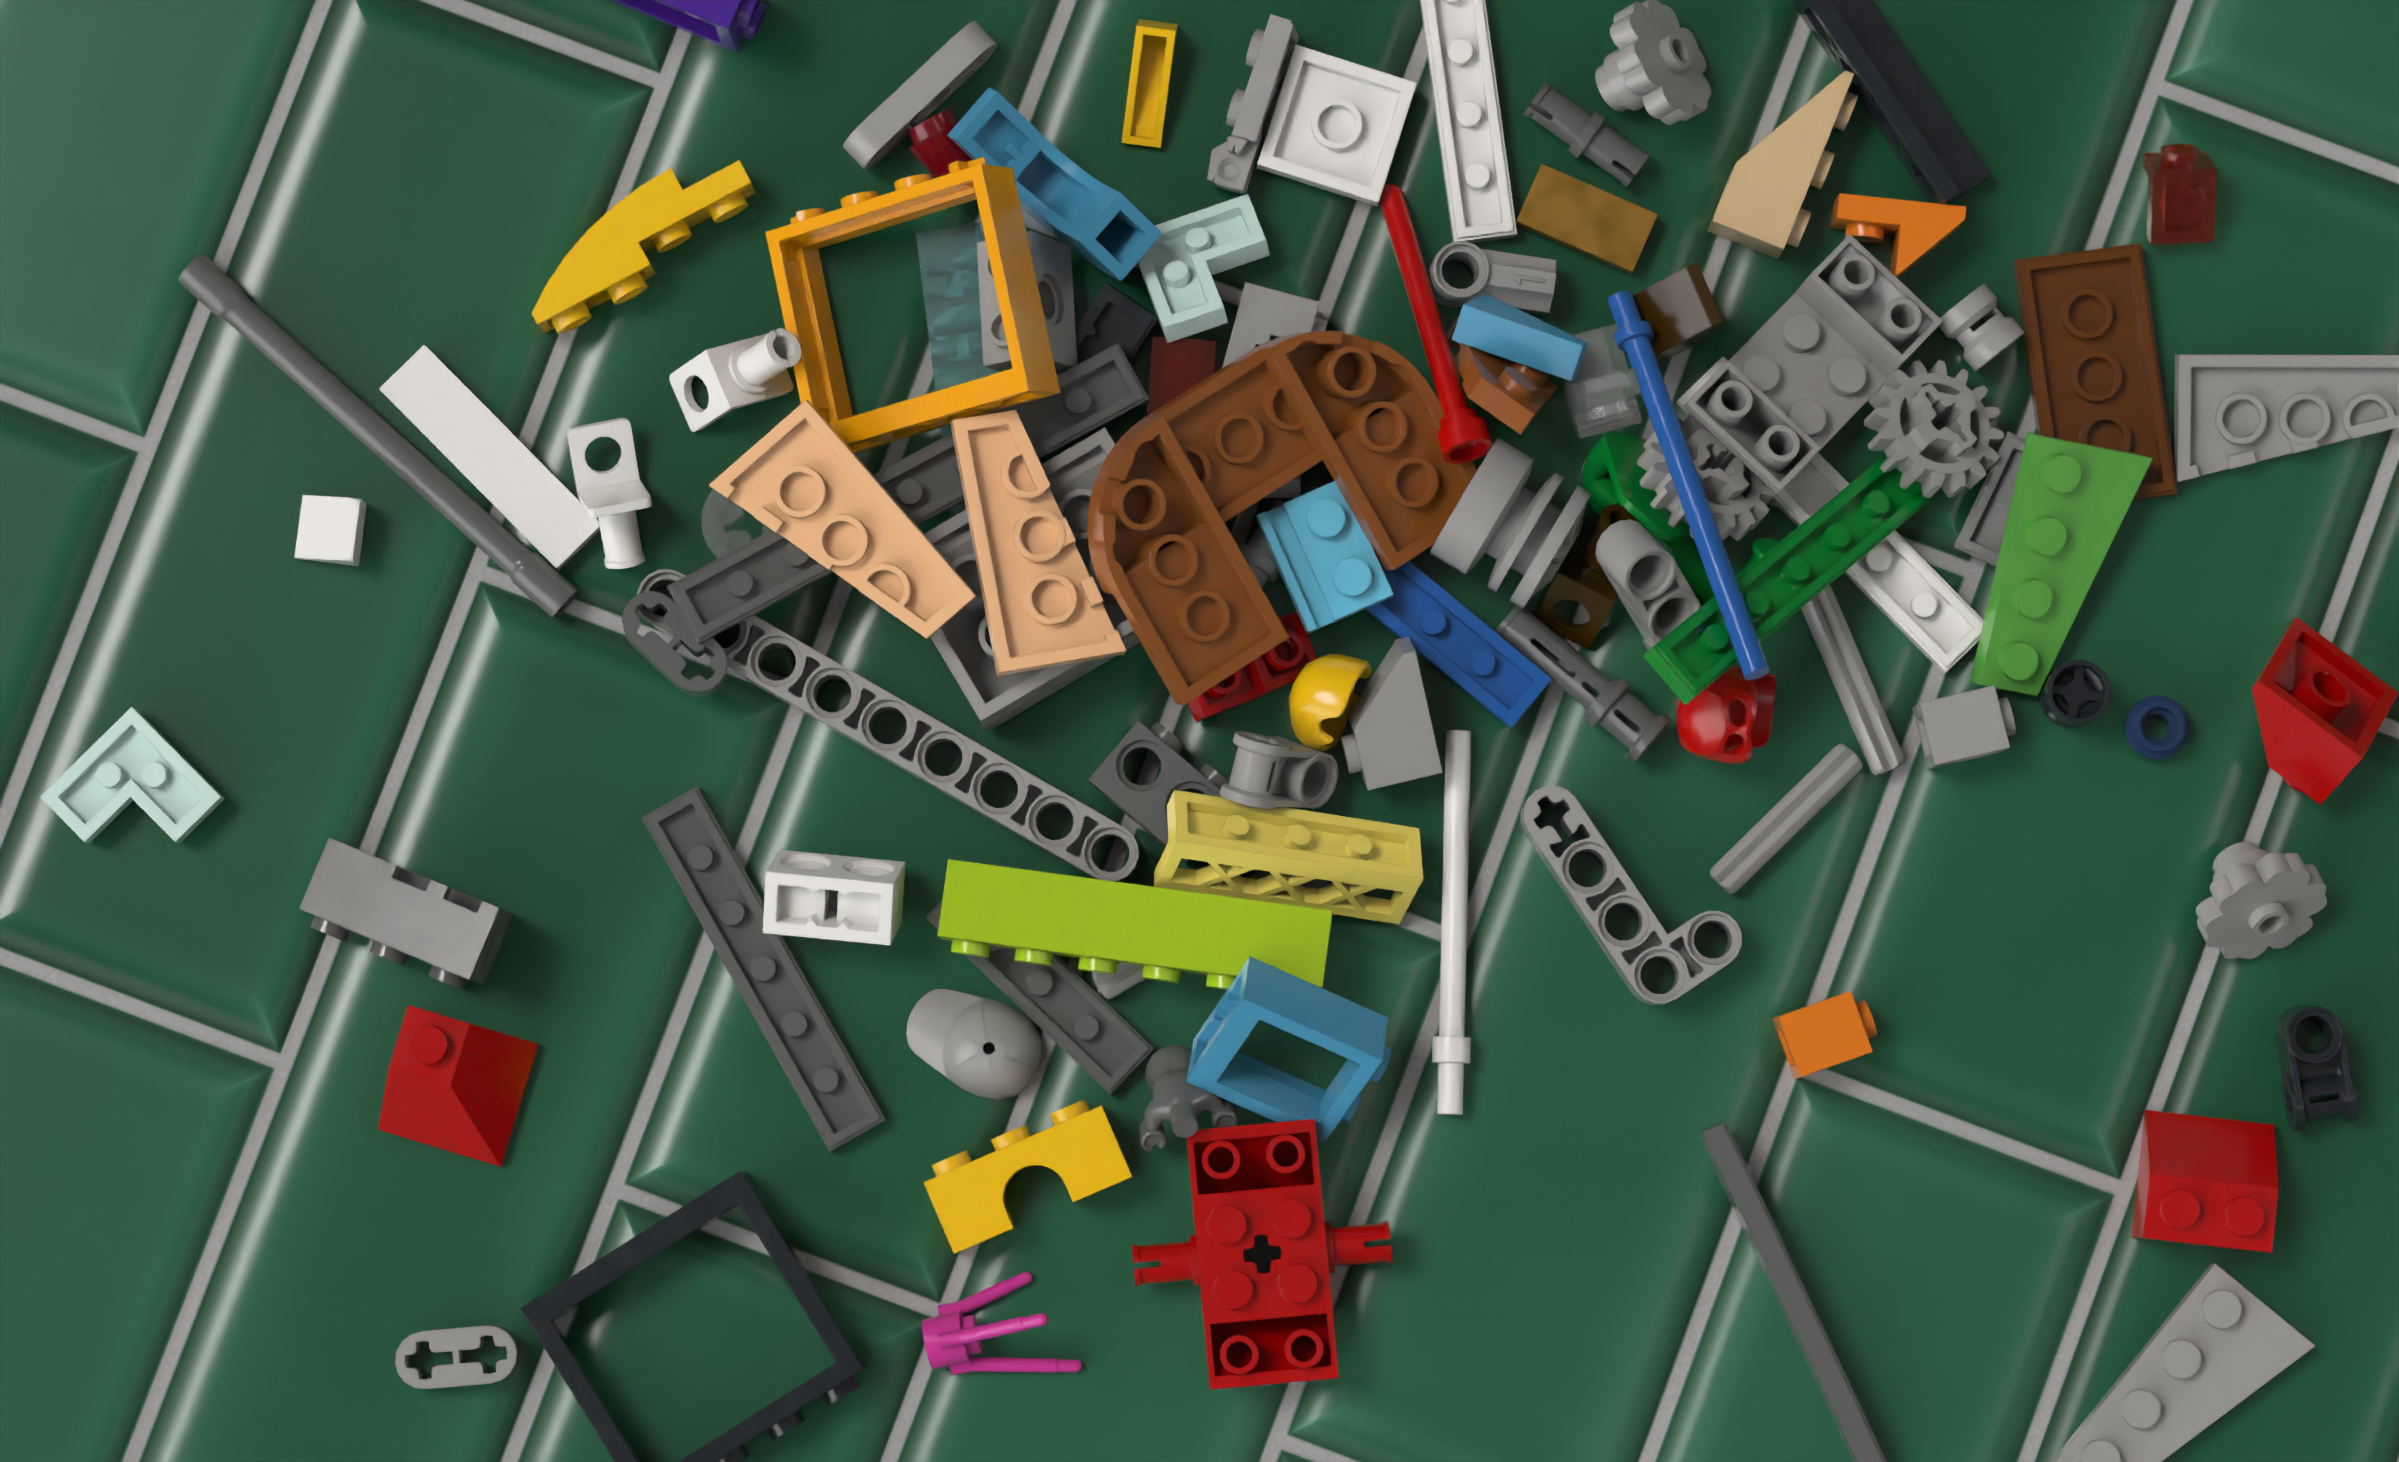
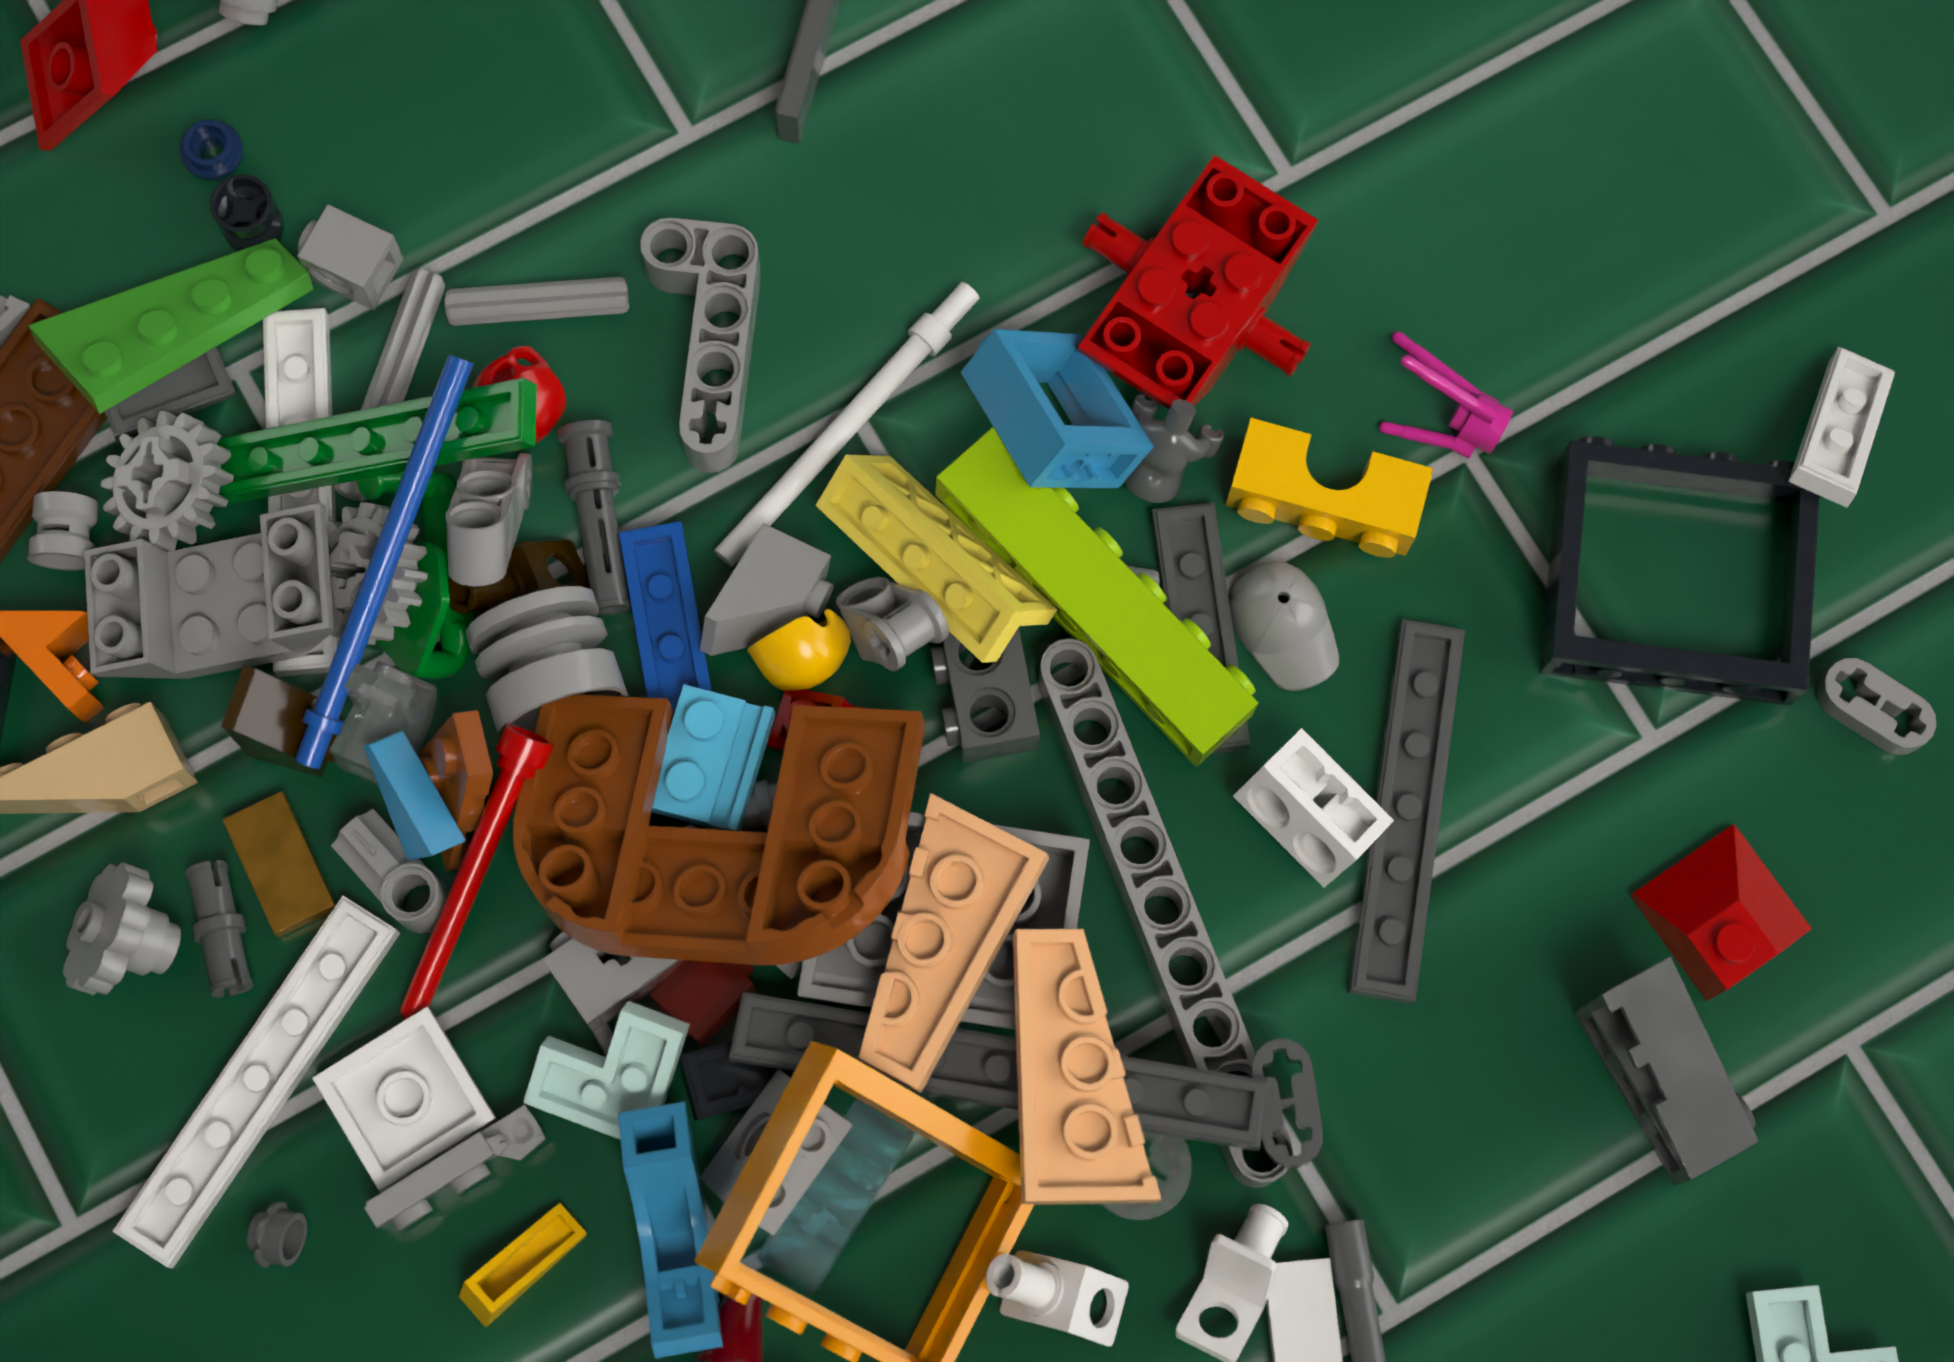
camera: 145 degrees left, 10 degrees down
(1825, 1033) = (647, 126): orange brick -> none

